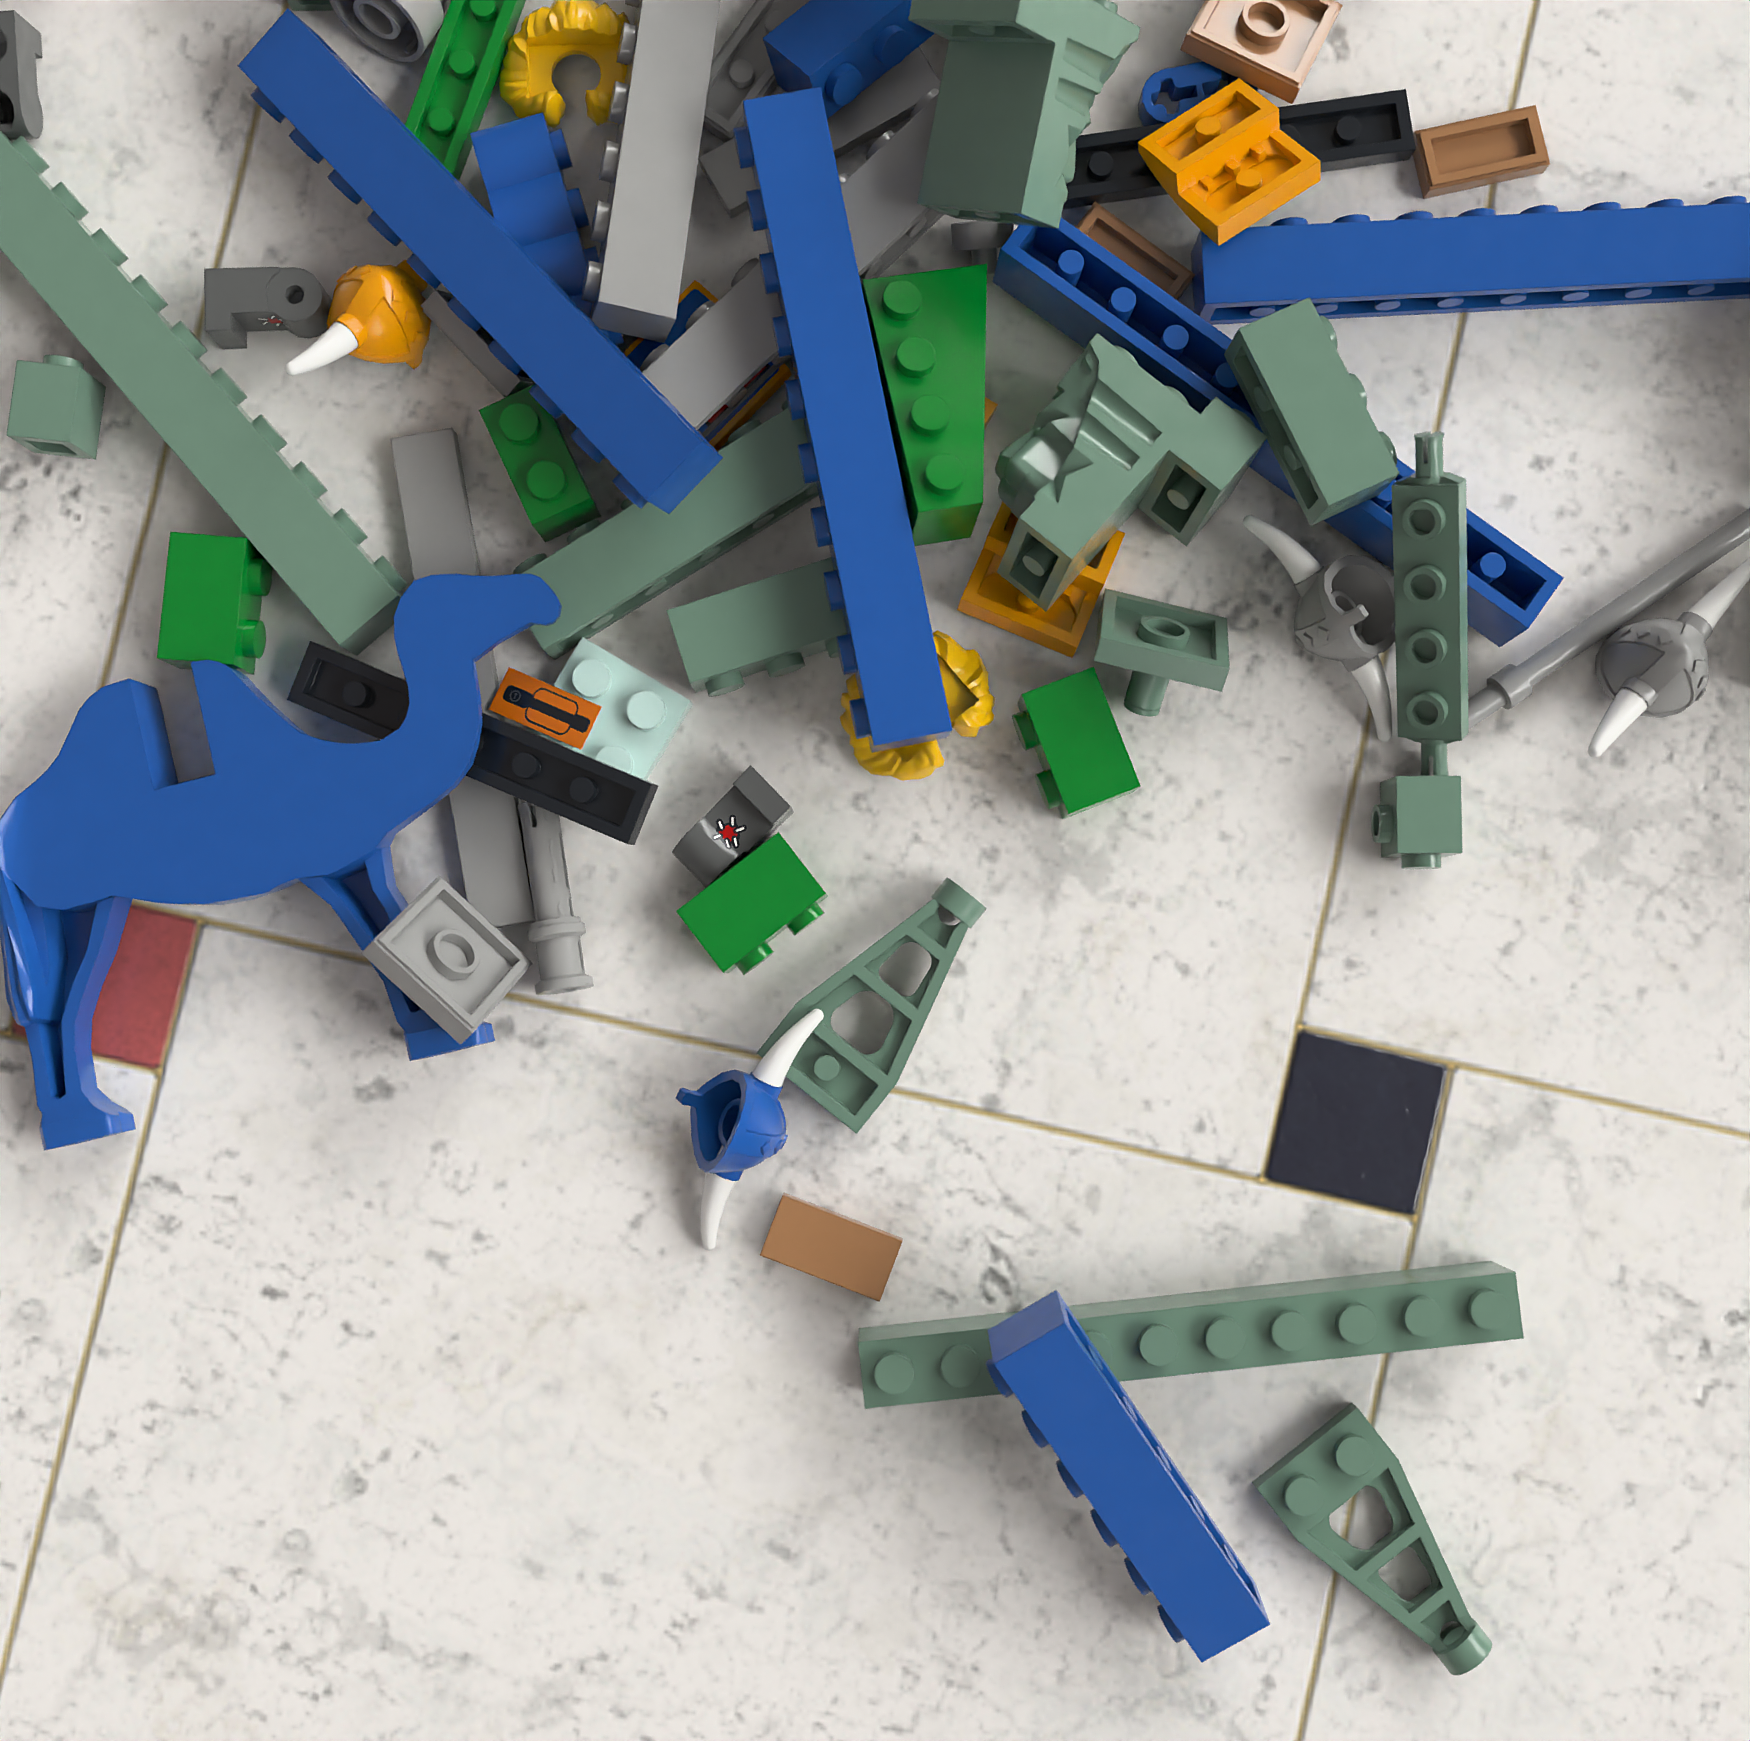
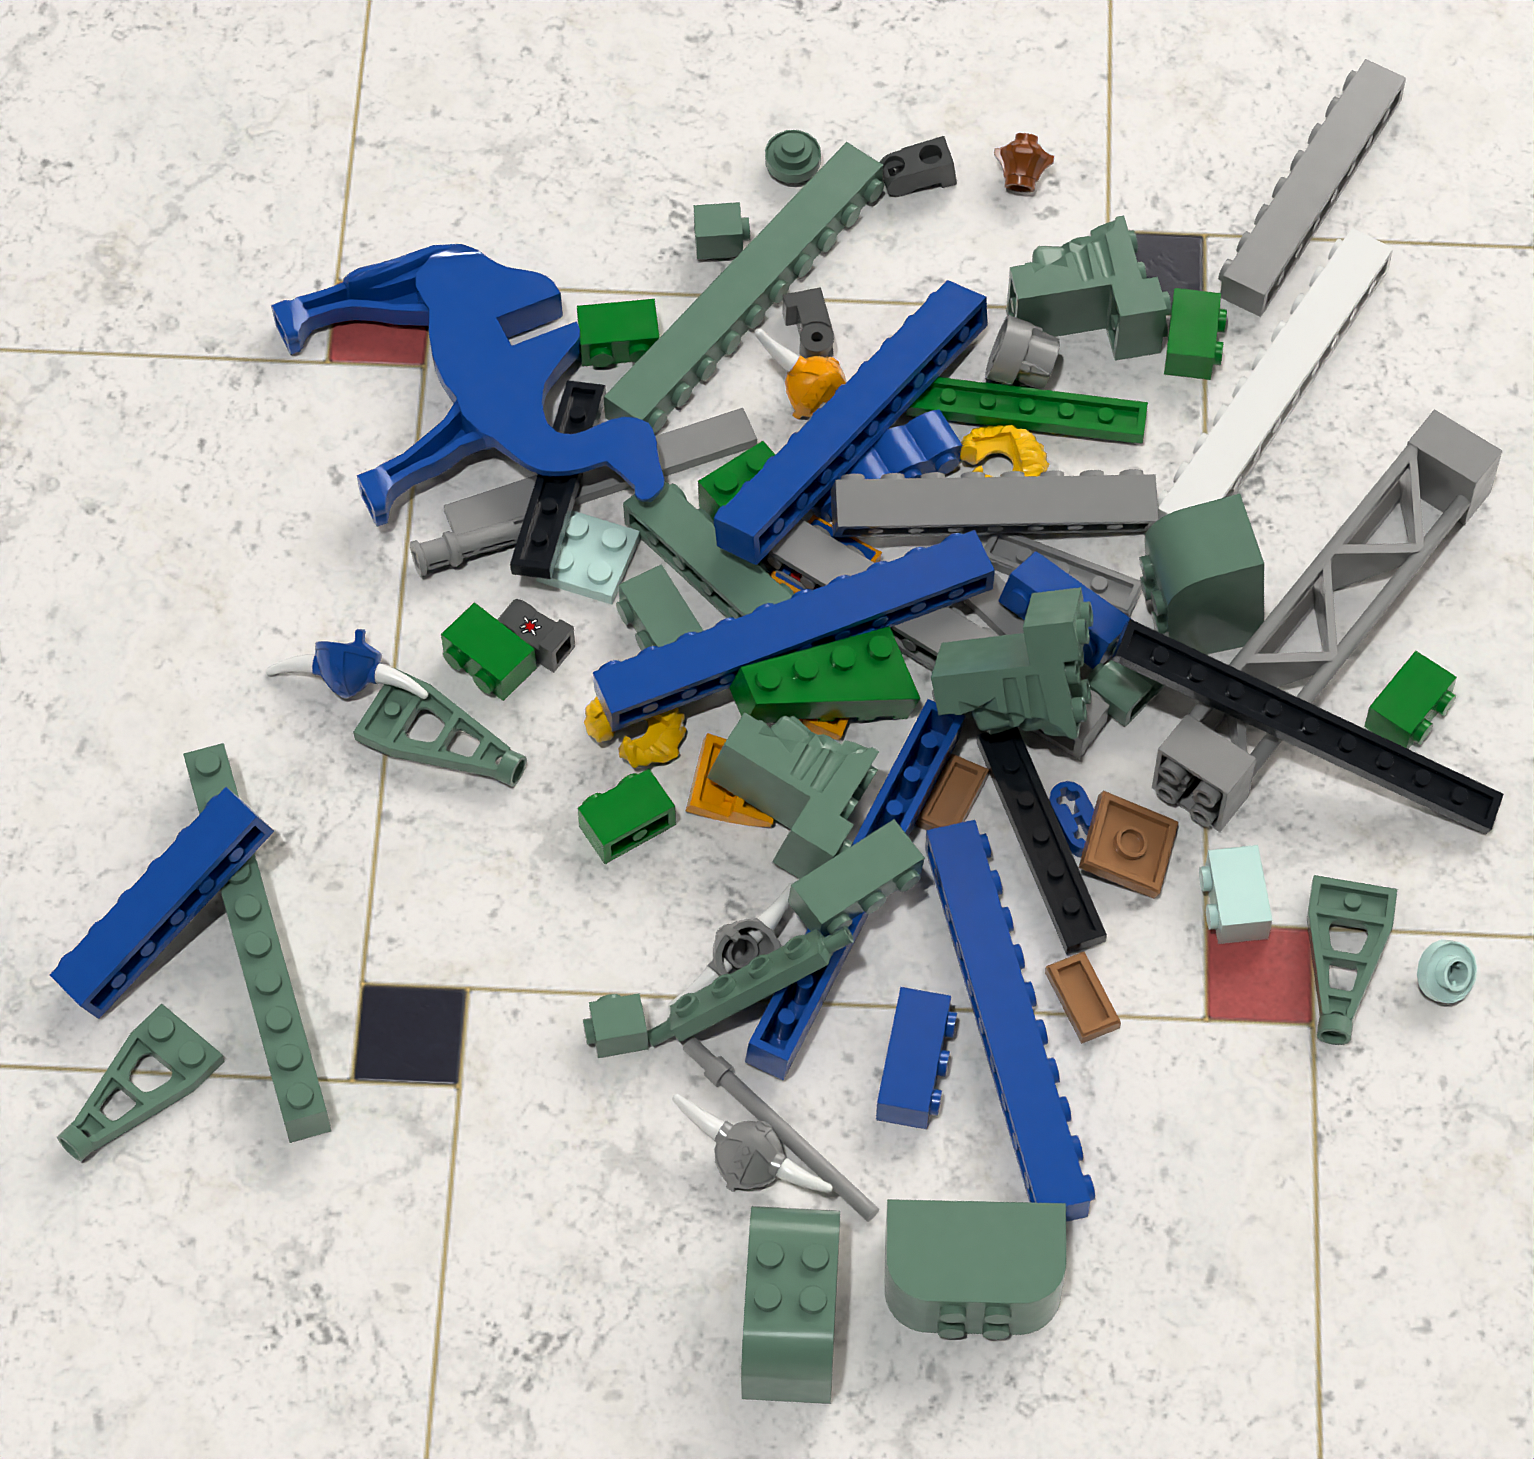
camera: 75 degrees right, 25 degrees down
(448, 959) = (422, 483): light grey tile -> none
(545, 708) = (589, 515): orange sticker -> none
(831, 1246) = (279, 737): medium nougat tile -> none
(1160, 646) = (699, 844): sand green tile -> none
(1229, 161) = (1024, 828): light orange slope -> none
(1549, 403) = (915, 1058): none -> blue brick

